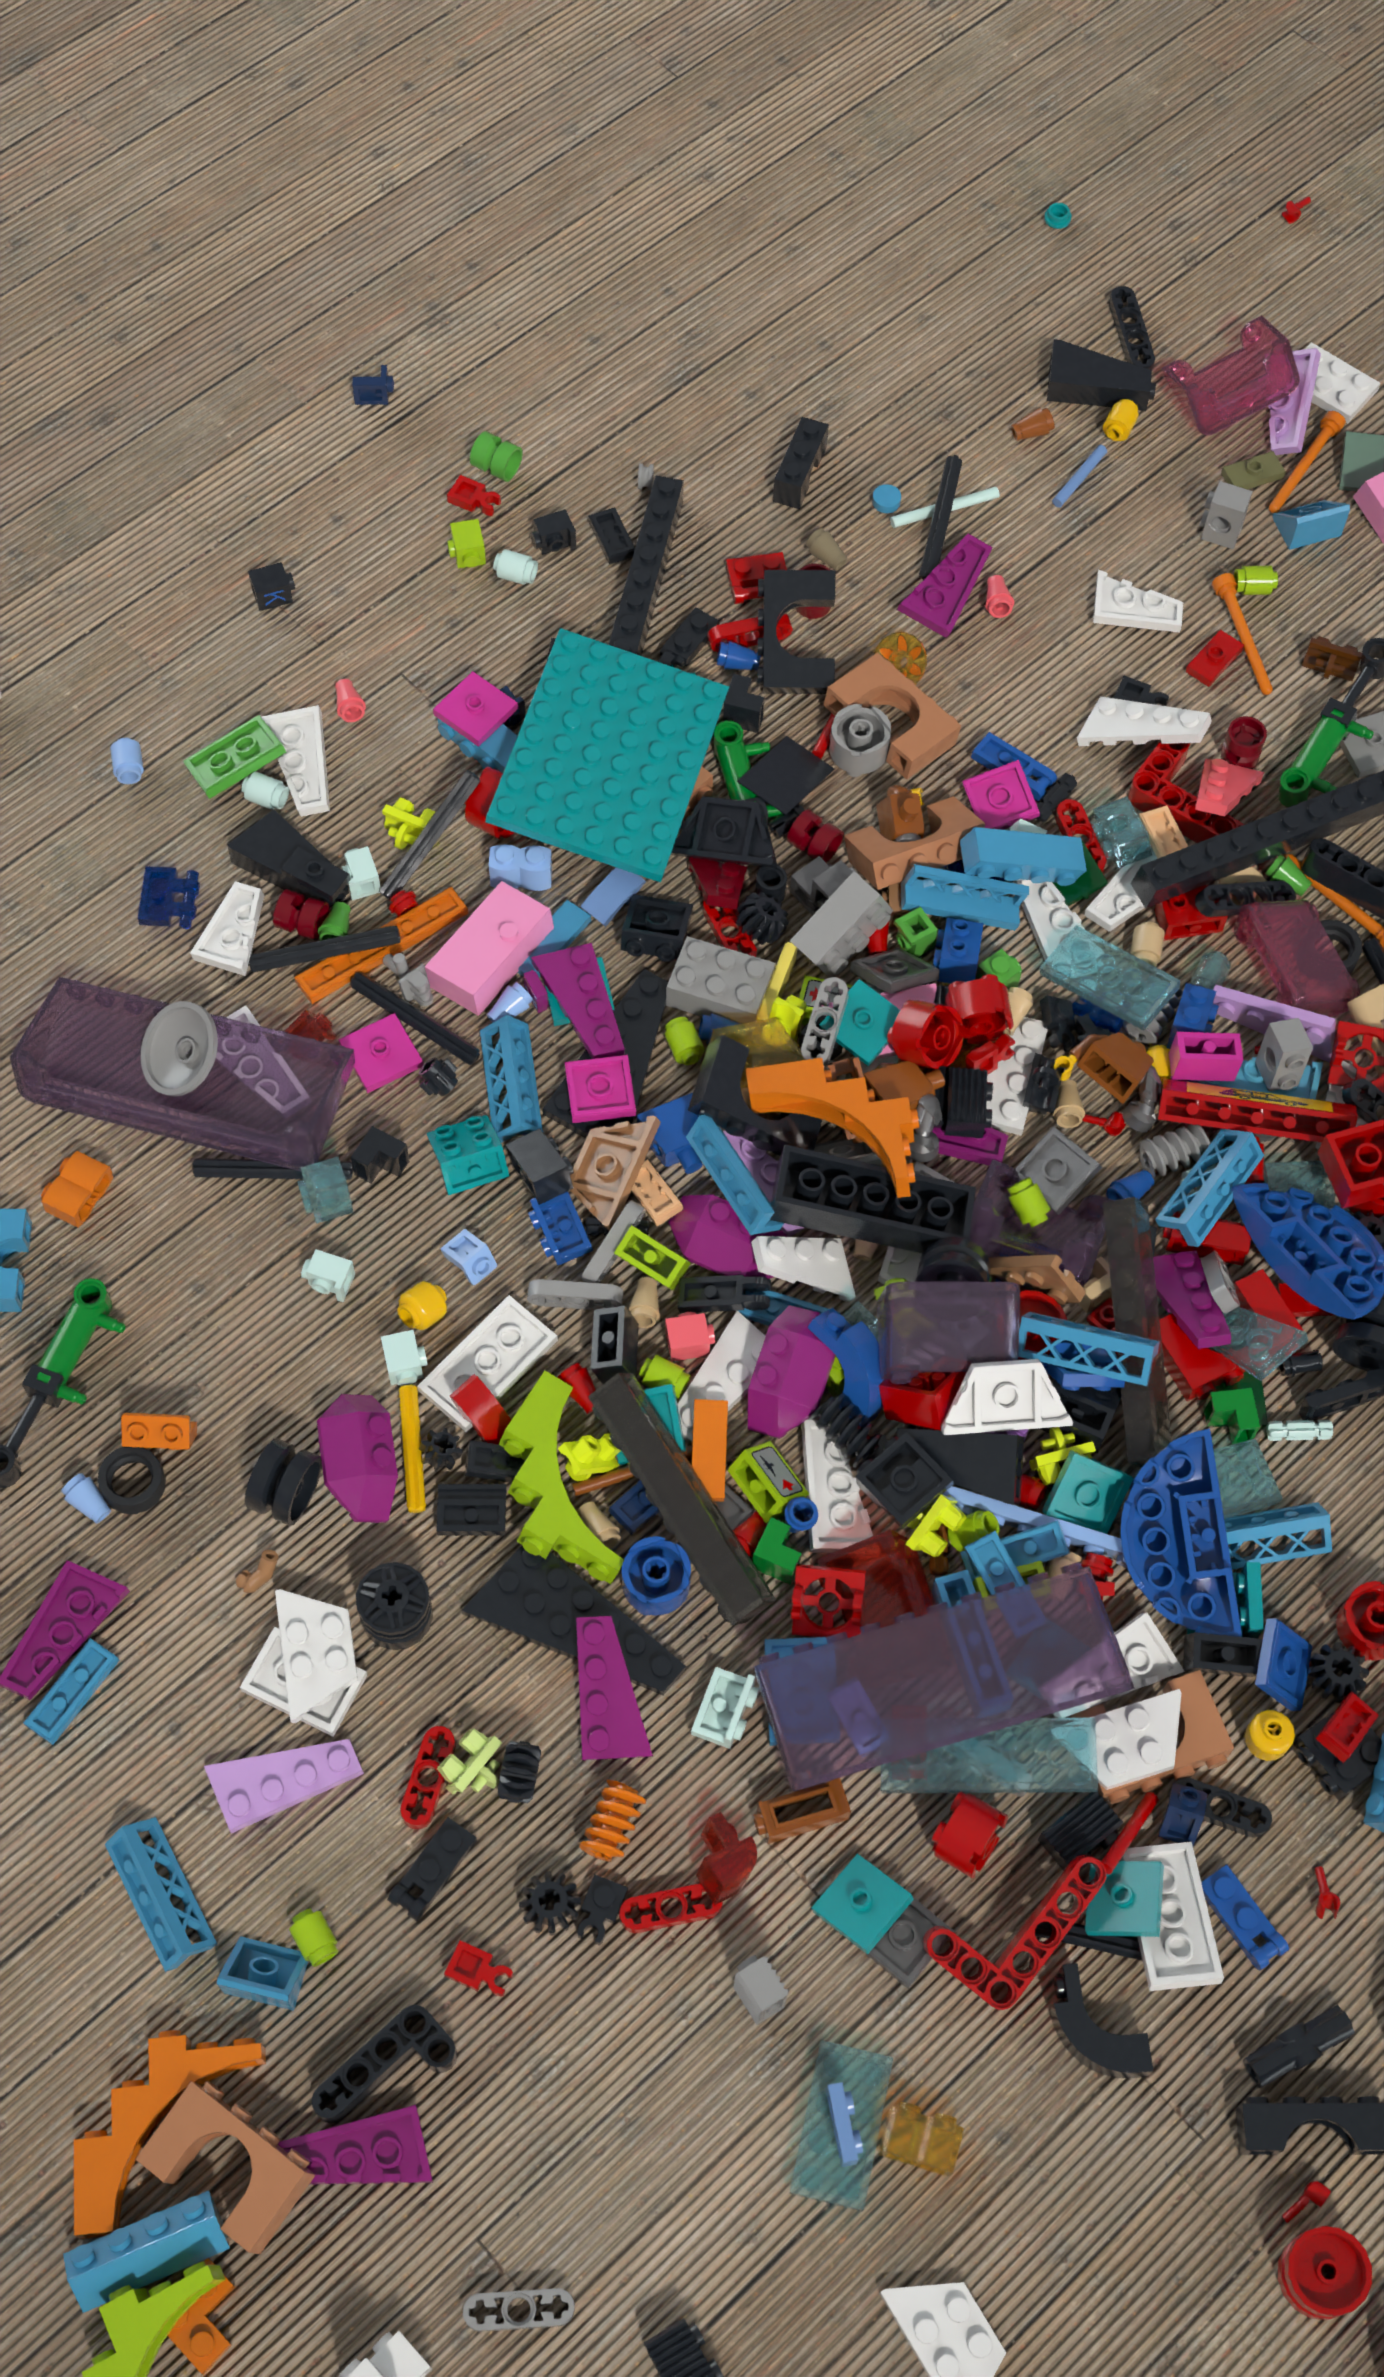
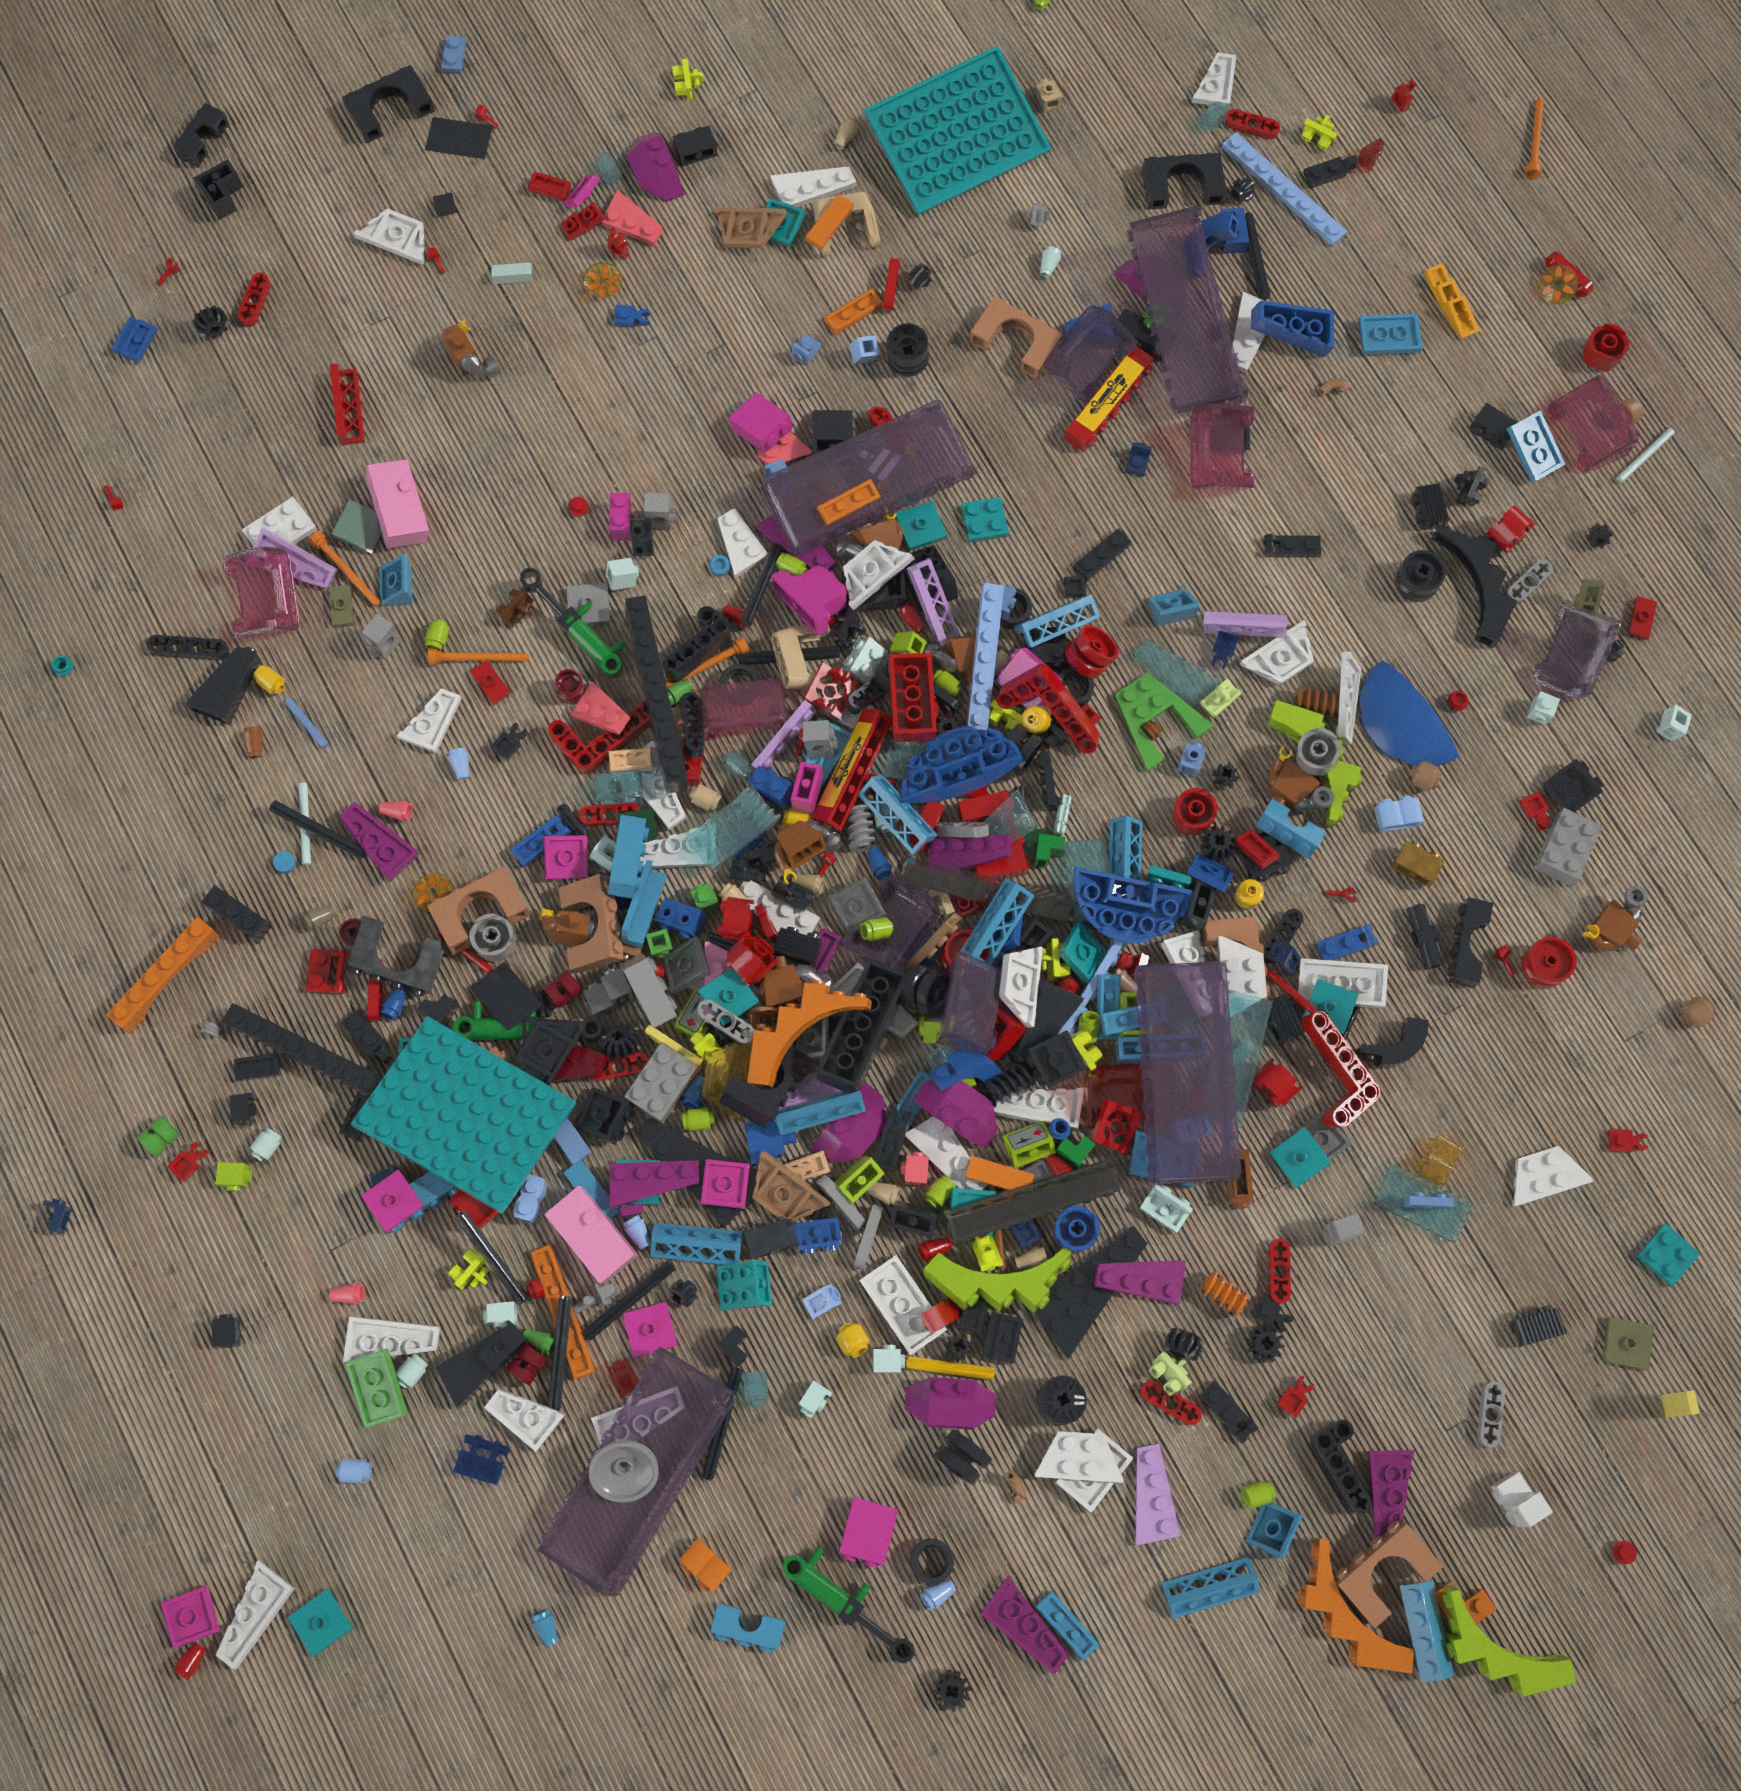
camera: 80 degrees left, 10 degrees up
(157, 1381) = (868, 1532): none -> dark pink brick
(158, 1431) = (905, 1536): orange bracket -> none
(731, 1861) = (1264, 1226): clear red brick -> none
(746, 425) = (136, 1002): none -> orange arch
(806, 1260) = (884, 1081): white wing -> none
(1090, 648) = (460, 763): none -> light blue cone
(1137, 721) = (531, 753): white wing -> none

